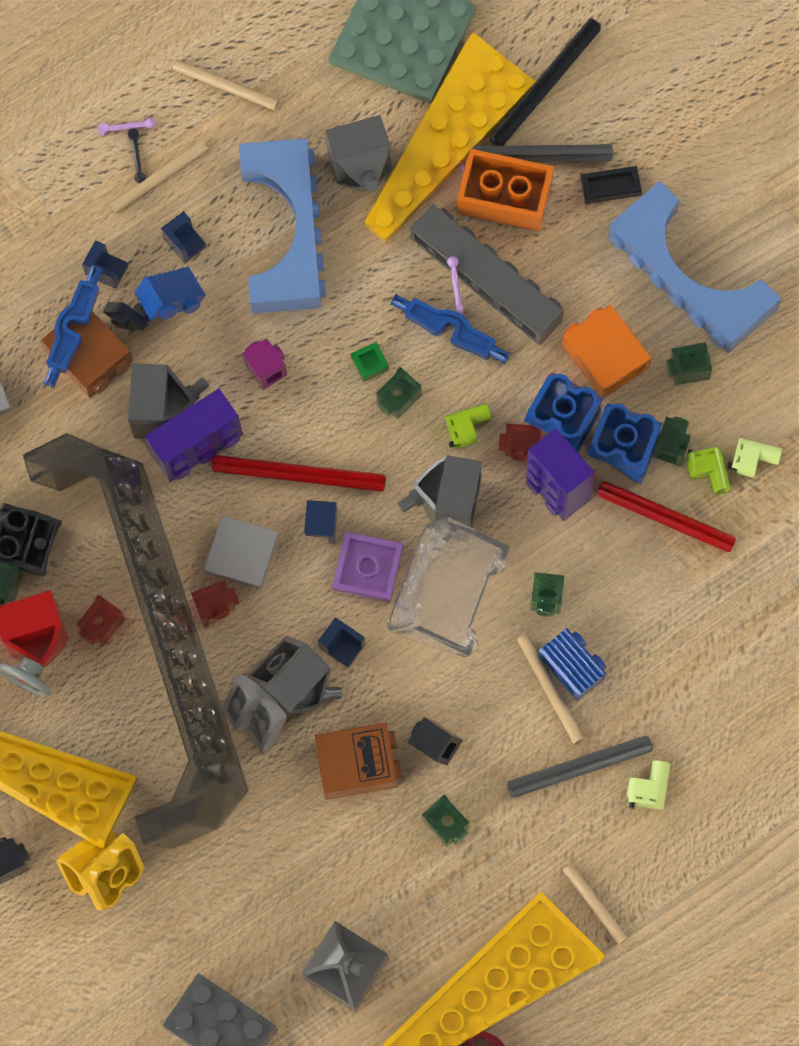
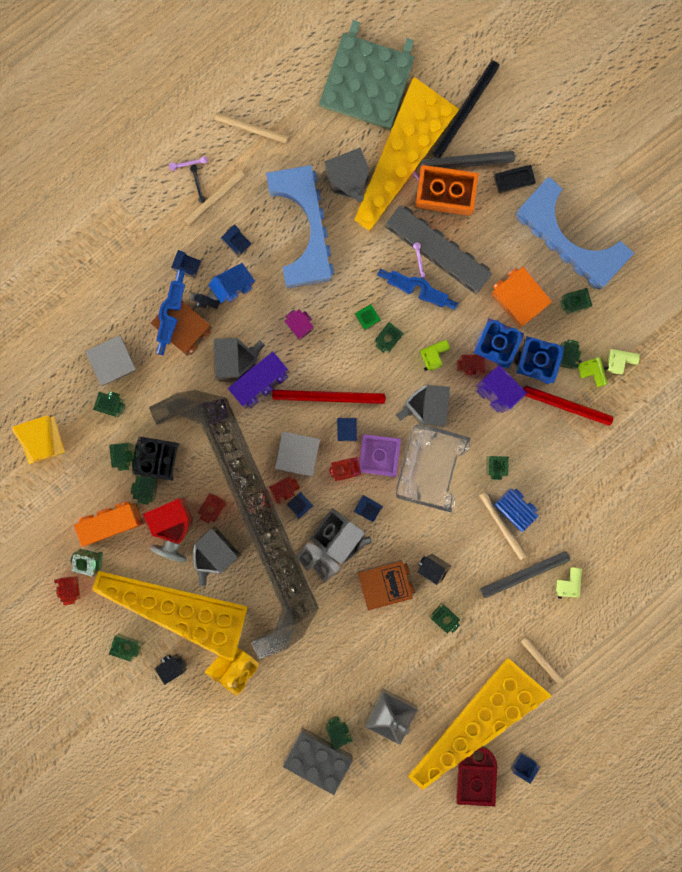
camera: 10 degrees left, 15 degrees up
(92, 687) = (213, 554): none -> dark grey piece
(237, 629) = (300, 505): none -> dark blue panel
(258, 985) = (338, 732): none -> clear green brick
(320, 580) = (350, 466): none -> clear red brick

